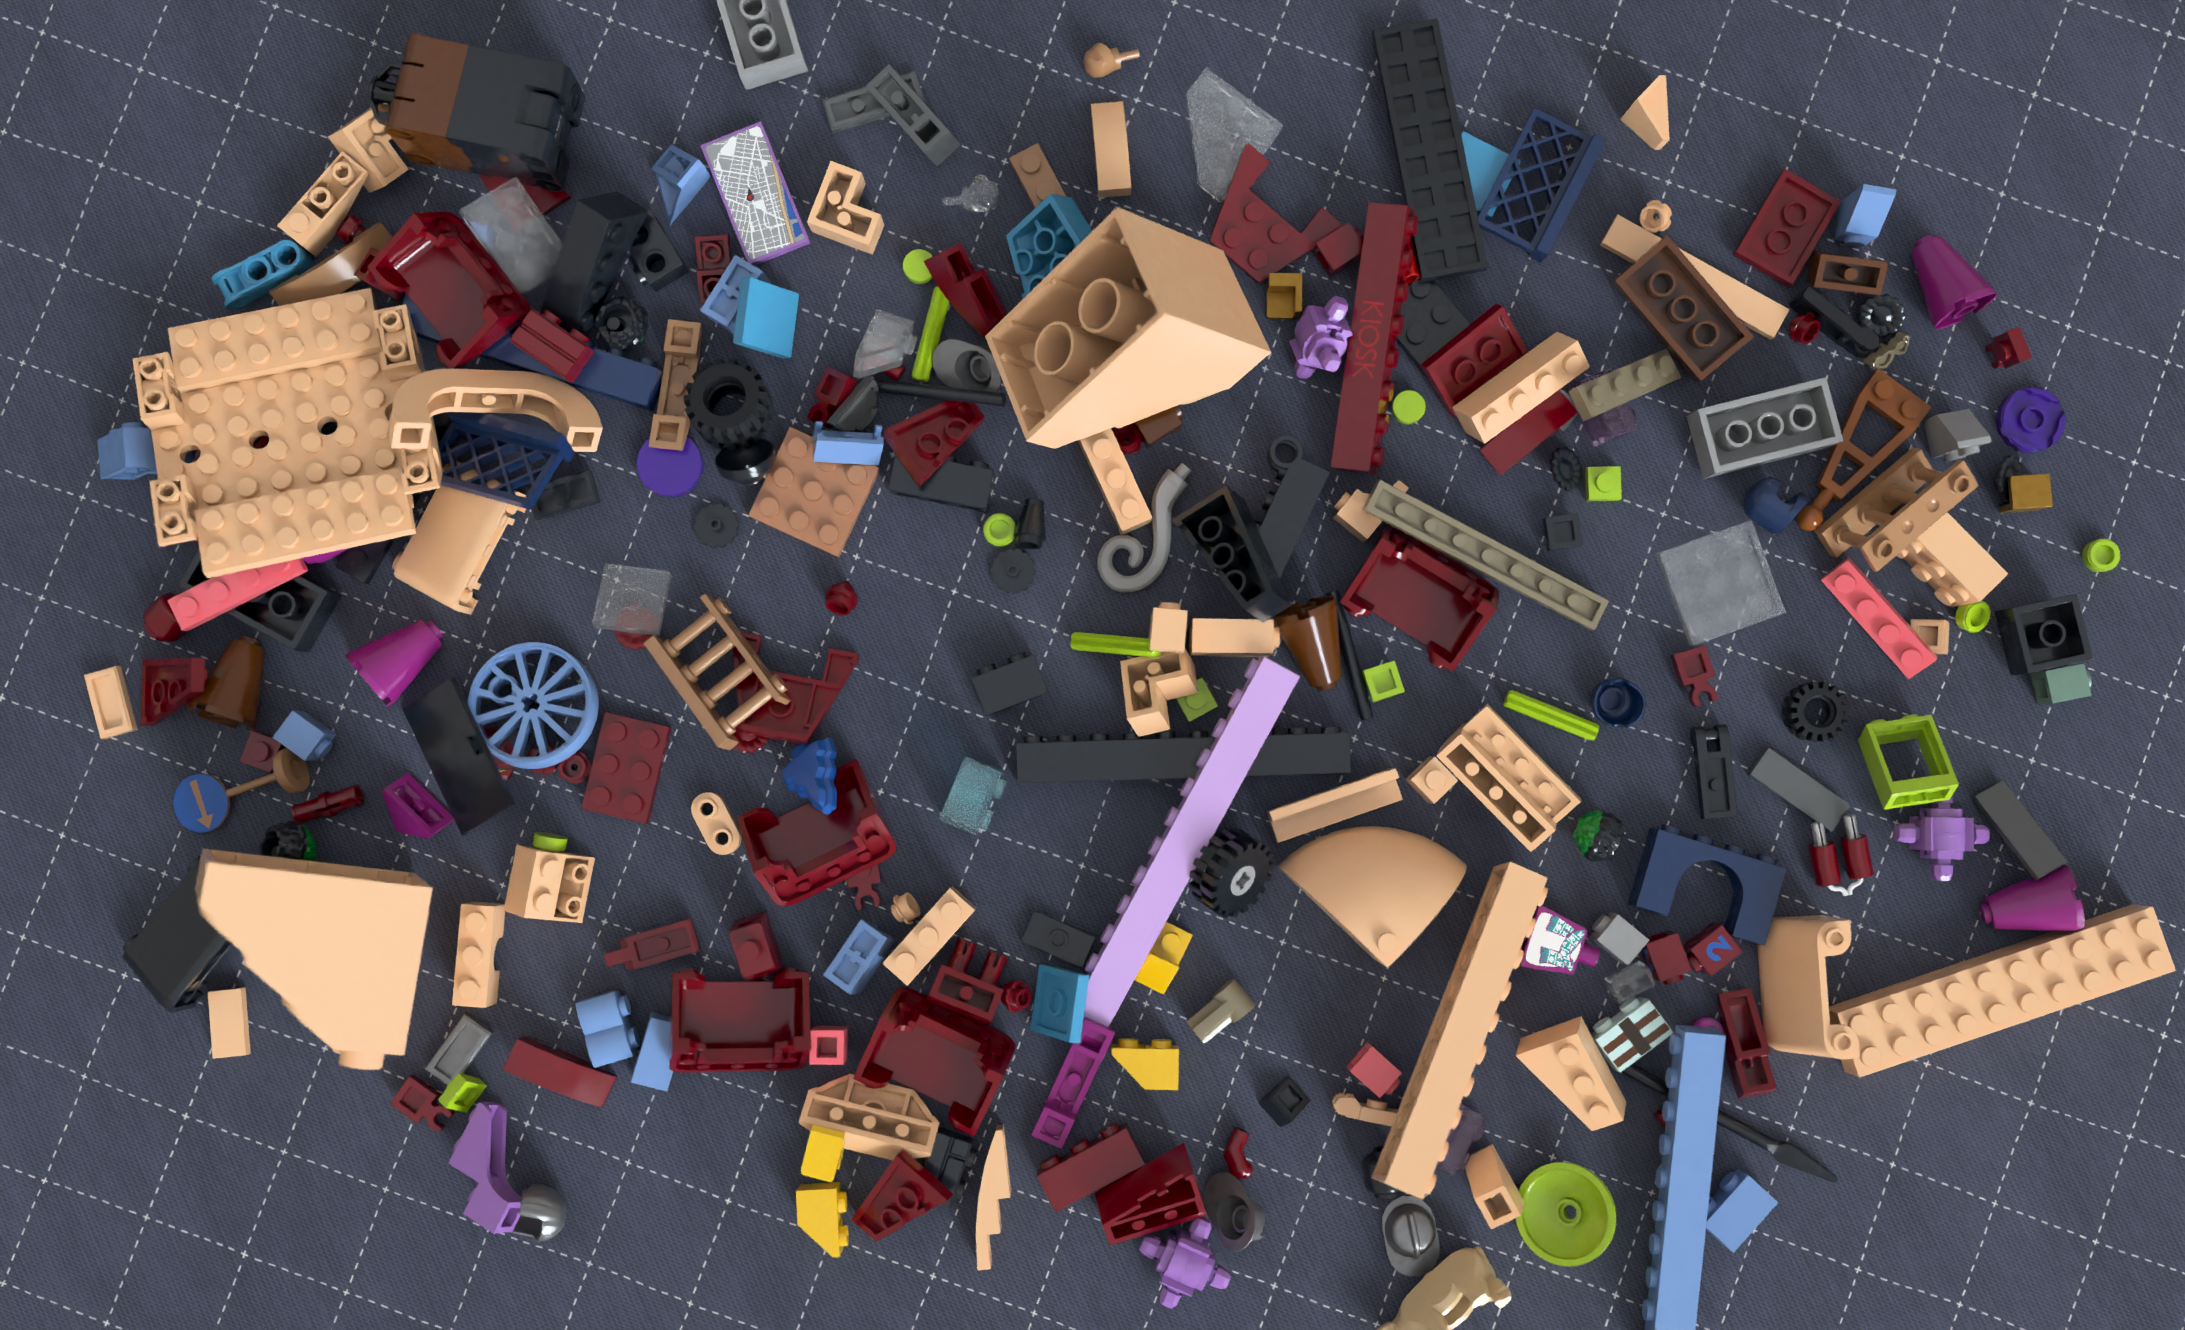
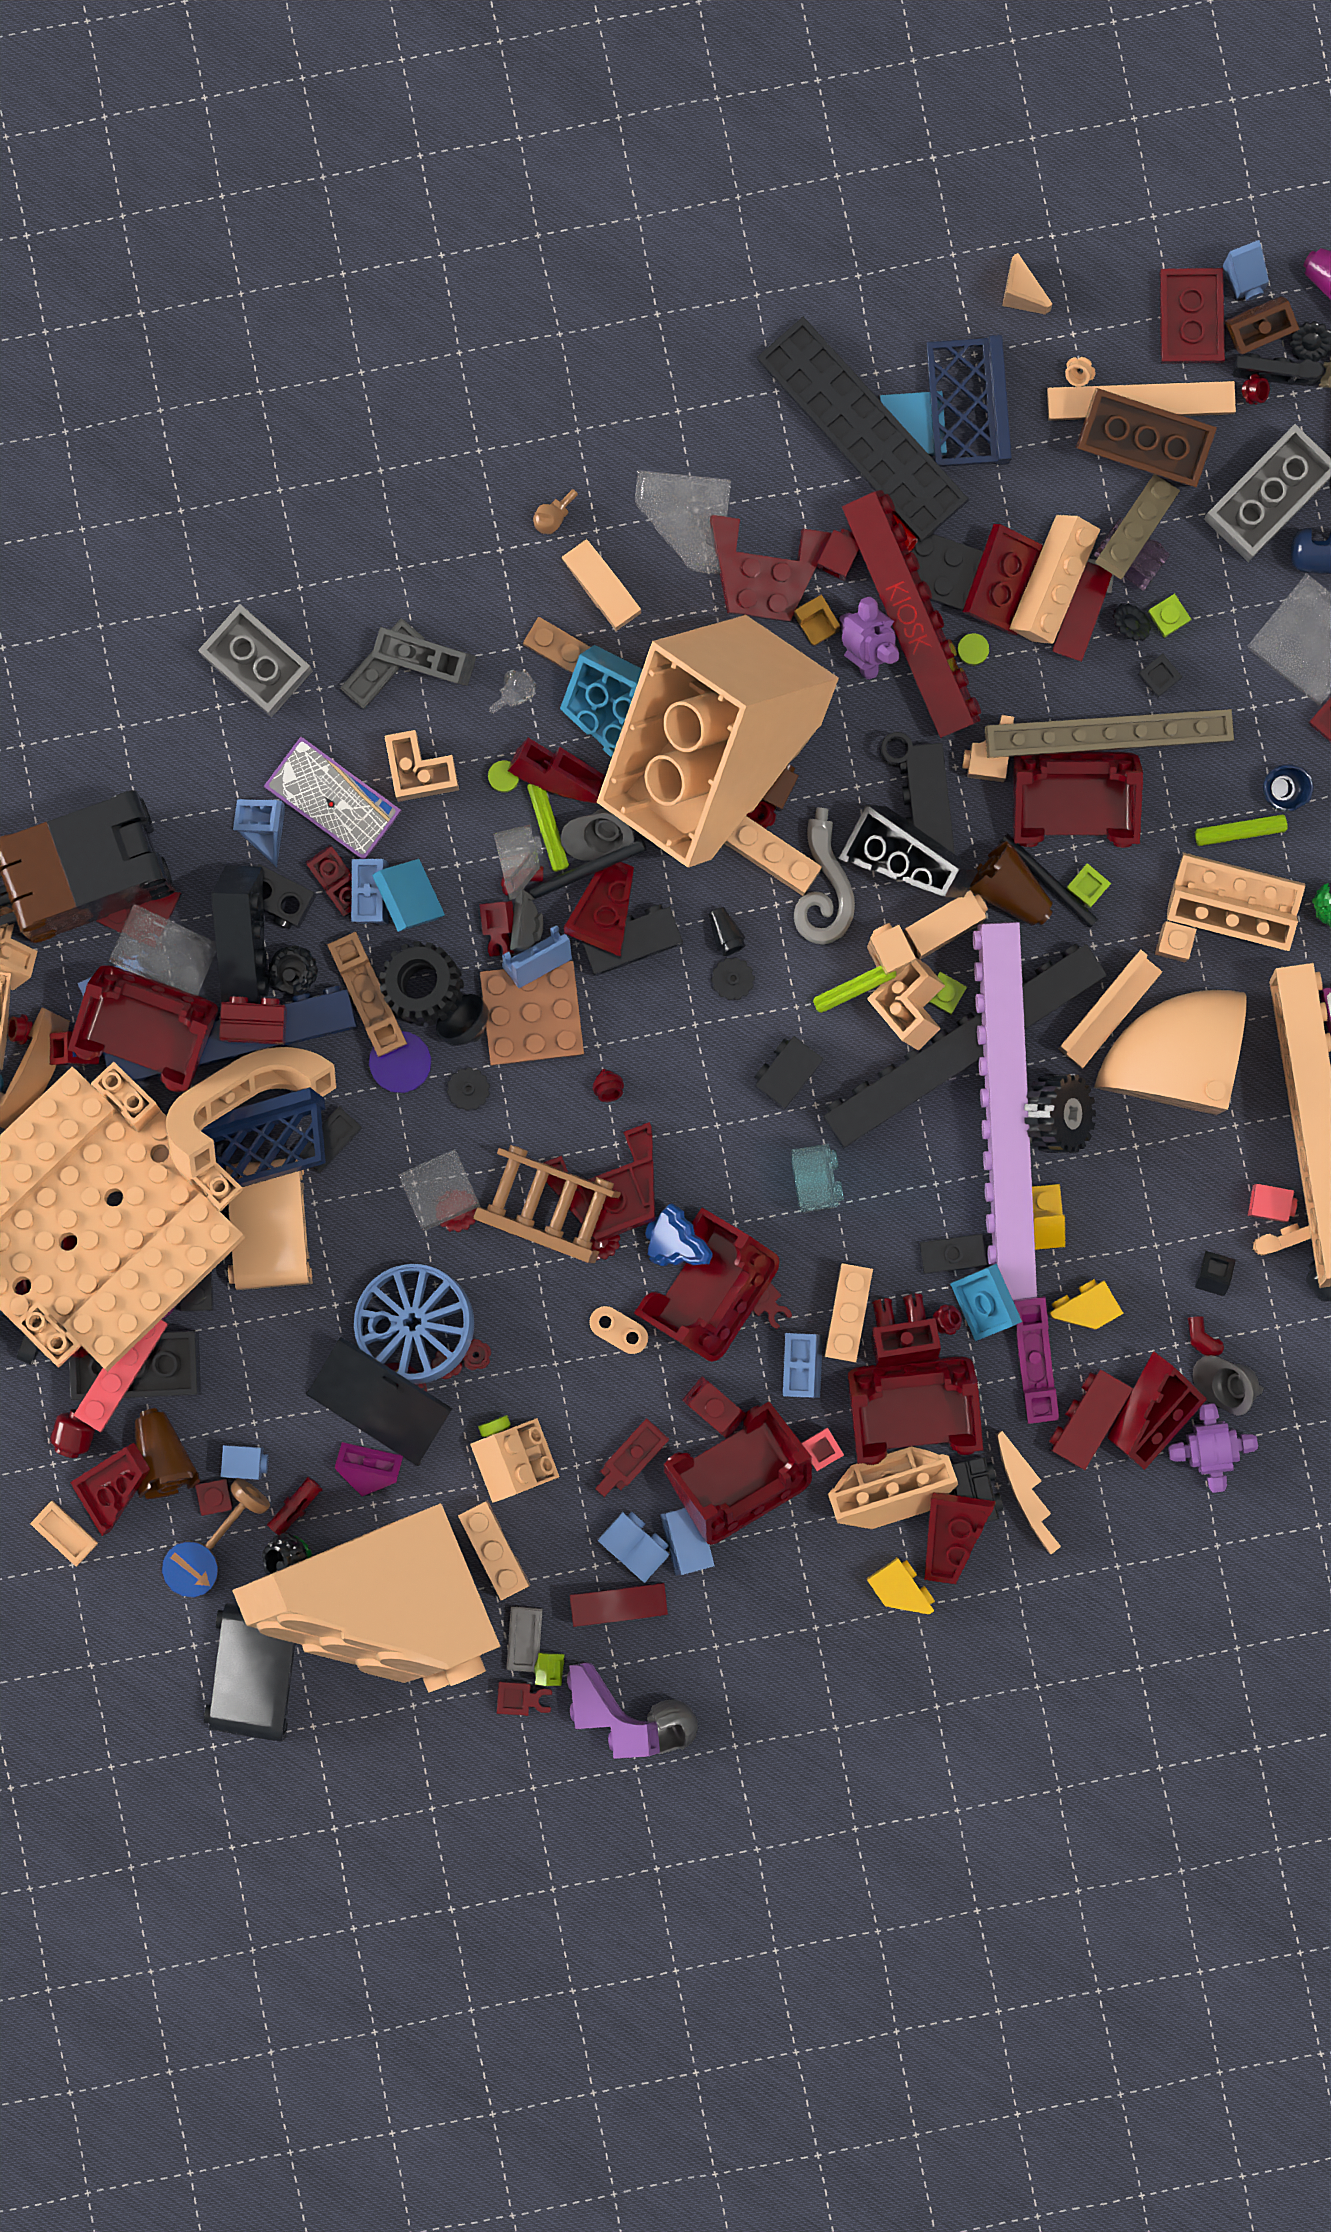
camera: 25 degrees left, 0 degrees up
(229, 1022) = (324, 1731): light nougat tile -> none
(396, 658) = (279, 1355): magenta cone -> none
(626, 768) = (518, 1329): dark red plate -> none
(823, 1153) = (871, 1534): yellow slope -> none
(905, 908) = (814, 1304): light nougat plate -> none
(999, 530) = (702, 952): lime tile -> none
(1227, 1006) = (1121, 1224): dark tan piece -> none

